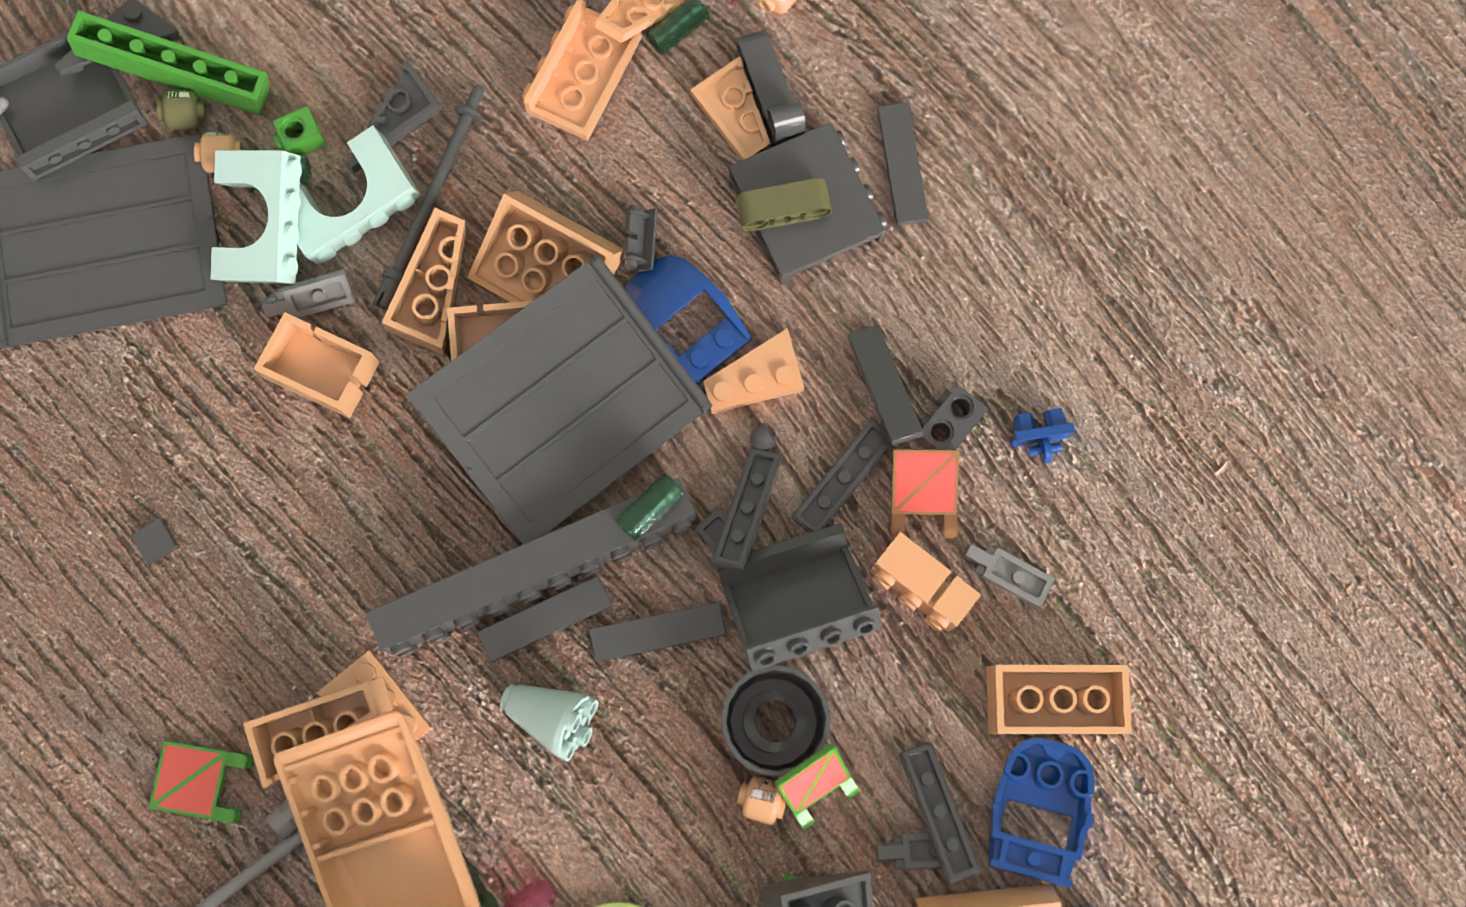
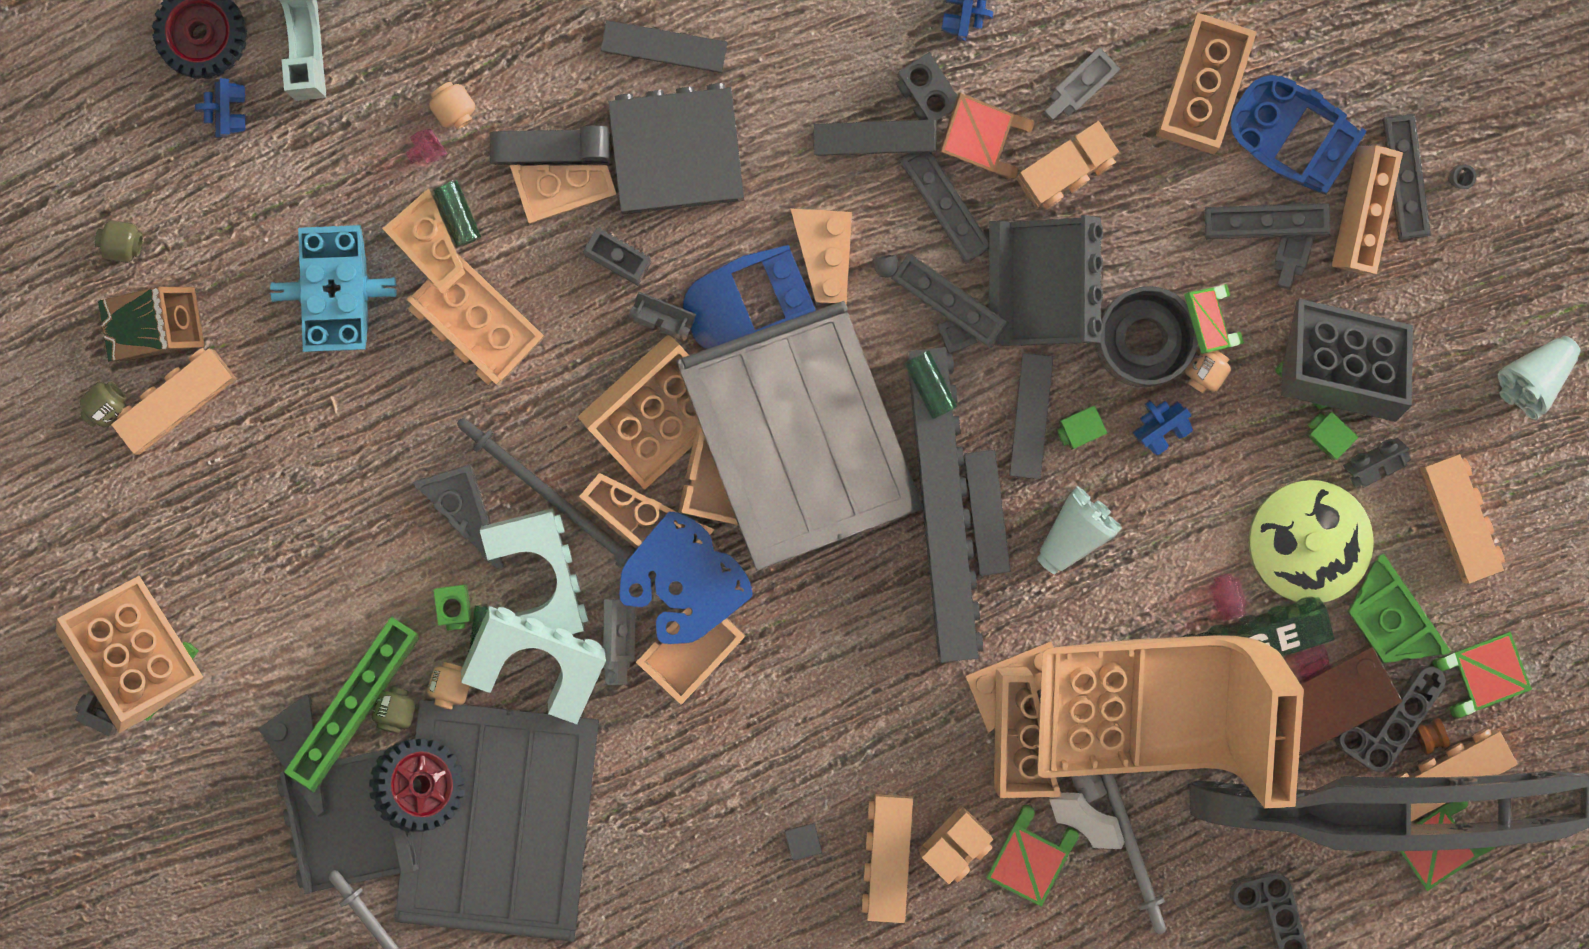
camera: 70 degrees left, 10 degrees up
(78, 148) = (394, 785): none -> wheel
(156, 631) = (889, 858): none -> light nougat brick
(177, 692) = (956, 845): none -> light nougat piece
(244, 841) = (1100, 829): none -> white tile
(395, 343) = (698, 569): none -> blue piece
(660, 686) = (1081, 428): none -> bright green brick
(685, 177) = (617, 256): none -> dark grey brick
(693, 767) = (1159, 422): none -> blue hips
(783, 204) = (679, 173): olive beam -> none

